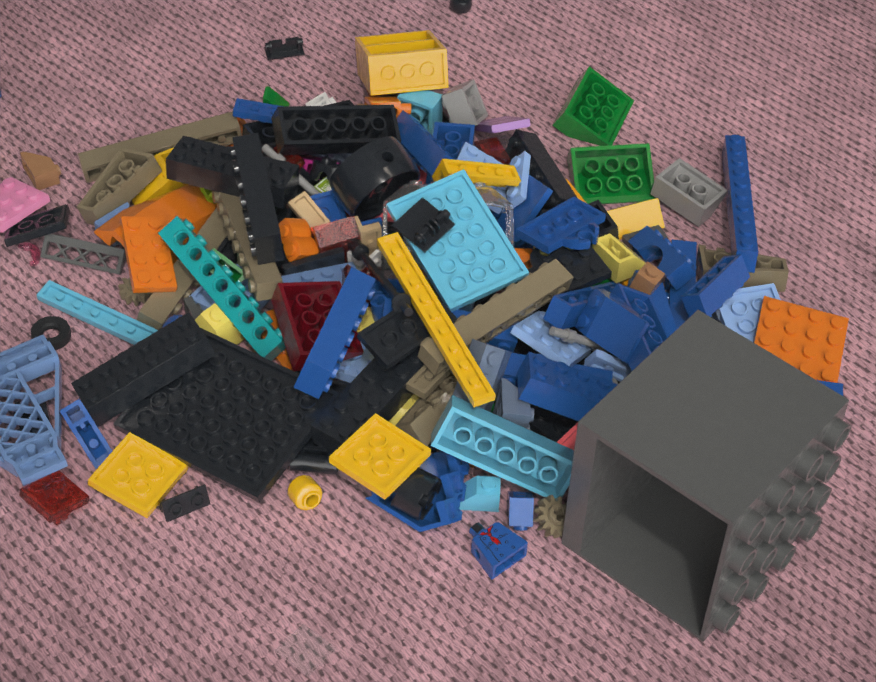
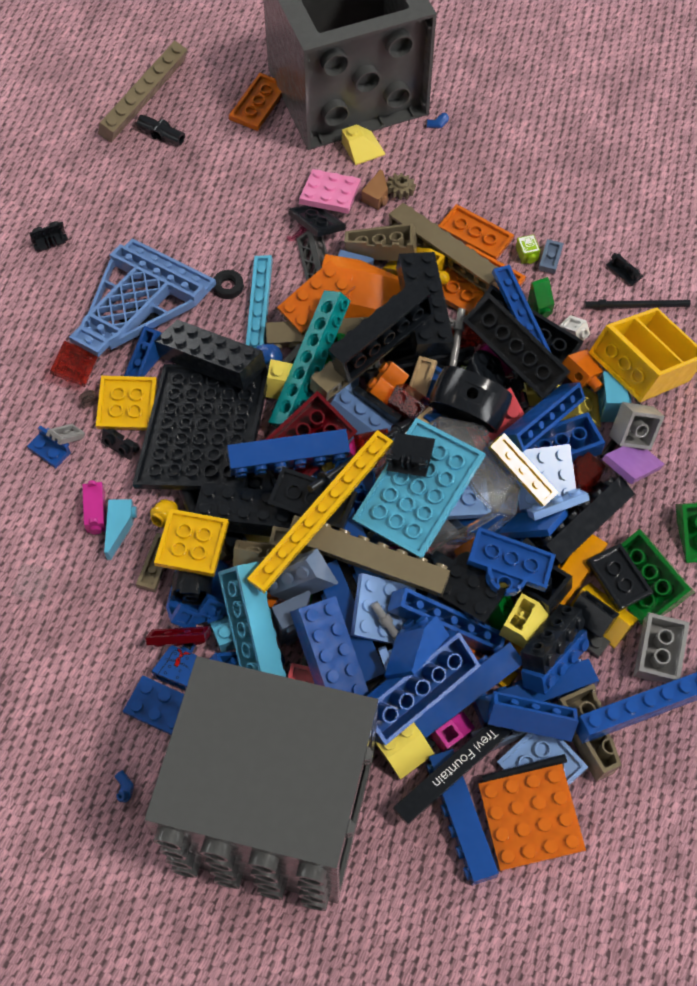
camera: 65 degrees right, 15 degrees up
(52, 148) = (400, 186): none -> dark tan gear
(104, 509) = (88, 399): none -> clear smoke tile
(134, 540) = (65, 434): none -> light grey tile
(139, 568) = (48, 449): none -> blue bracket
(153, 120) = (476, 231): none -> orange plate
(208, 97) = (527, 249): none -> lime brick
(228, 87) = (551, 256): none -> sand blue plate
(253, 552) = (94, 507): none -> dark pink brick
(288, 537) = (119, 522): none -> medium azure slope
(311, 77) = (603, 304): none -> black bar
(358, 523) = (151, 574): none -> dark tan plate
(467, 526) = (178, 636): none -> dark red plate
(529, 584) = (154, 704): none -> blue plate
(605, 185) = (619, 577): none -> black tile
(606, 647) = (126, 788): none -> blue arm
(633, 215) = (596, 614): none -> black brick
(648, 243) = (552, 639): none -> black brick
(648, 279) = (500, 656): medium nougat slope -> none
(754, 317) = (526, 768): none -> black bar

